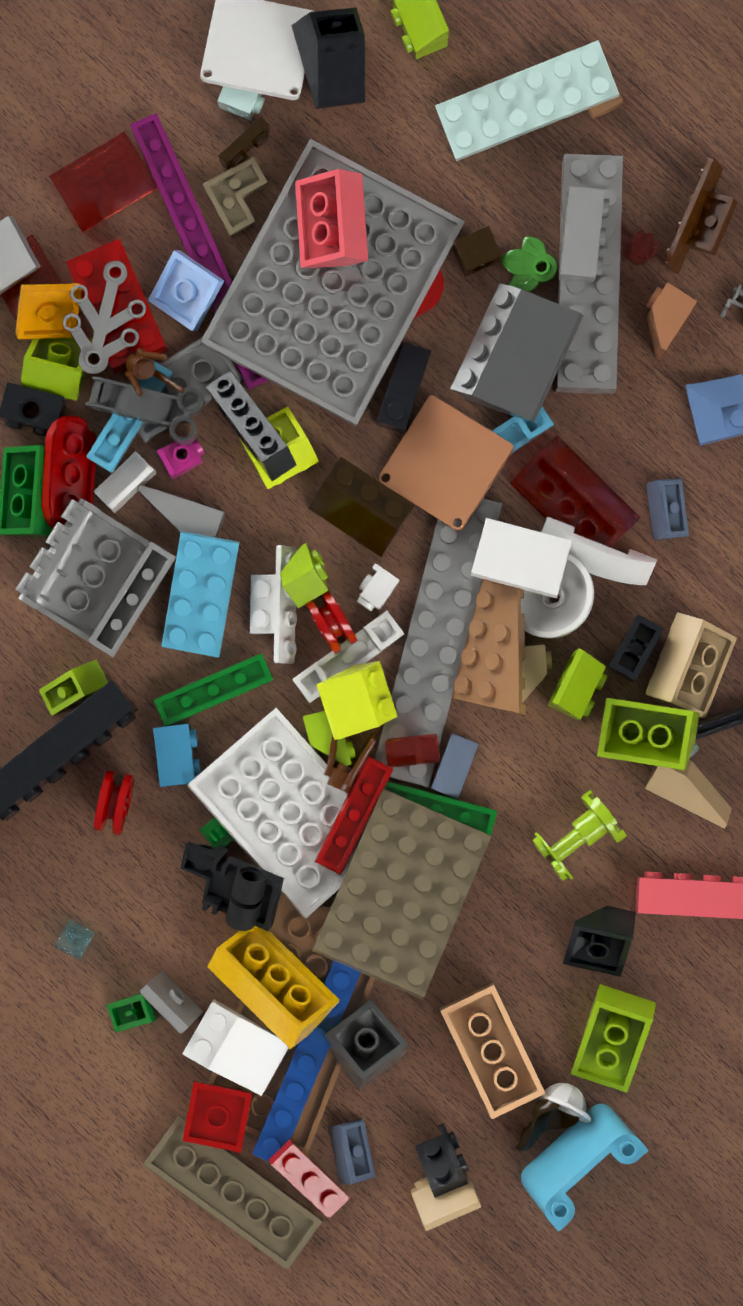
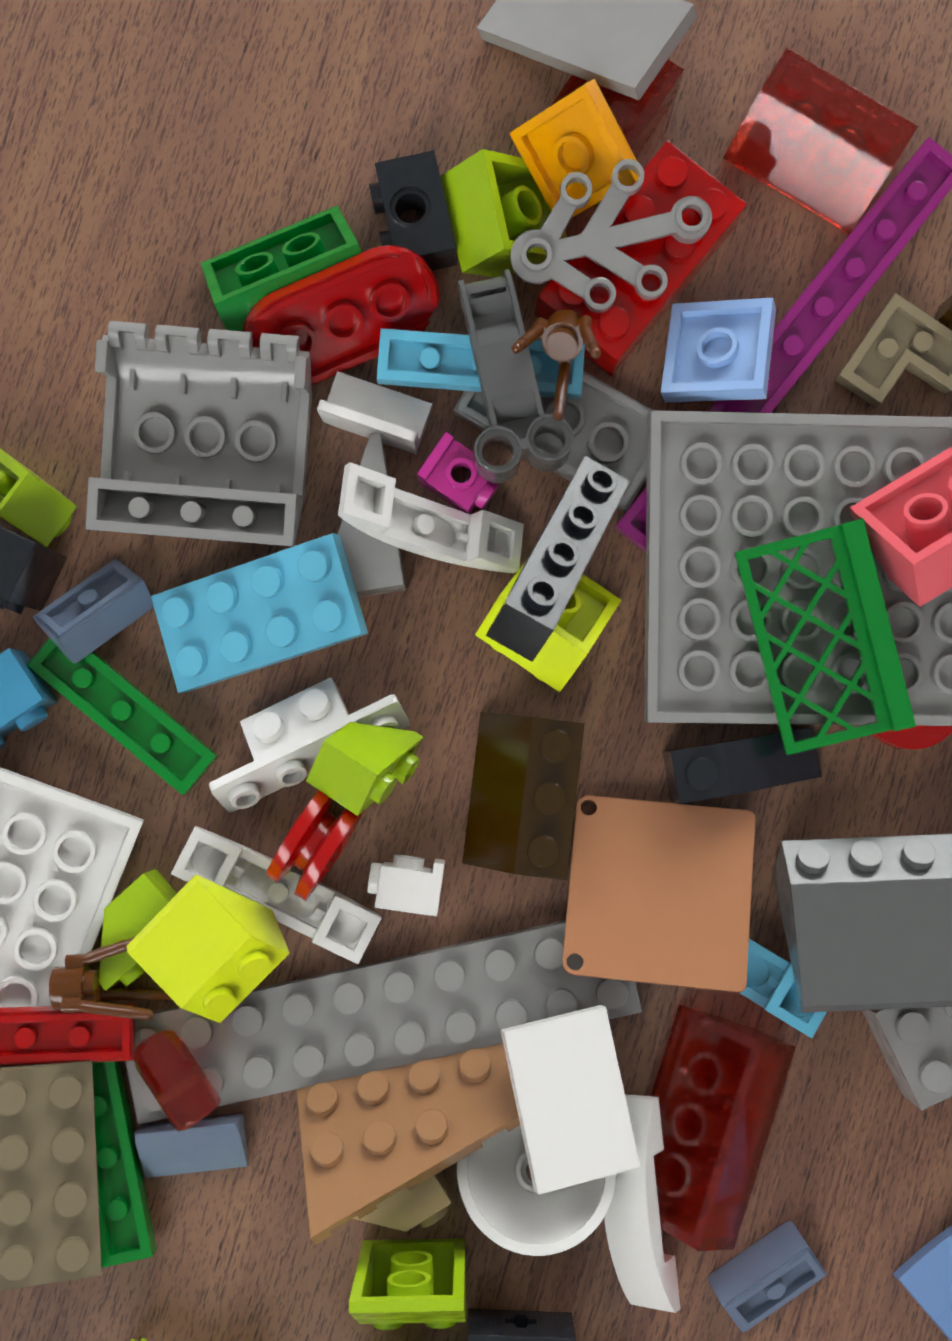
camera: 65 degrees right, 0 degrees up
(154, 677) = (95, 610): none -> sand blue slope
(202, 483) = (428, 527): none -> white slope
(365, 290) = (869, 625): none -> green fence

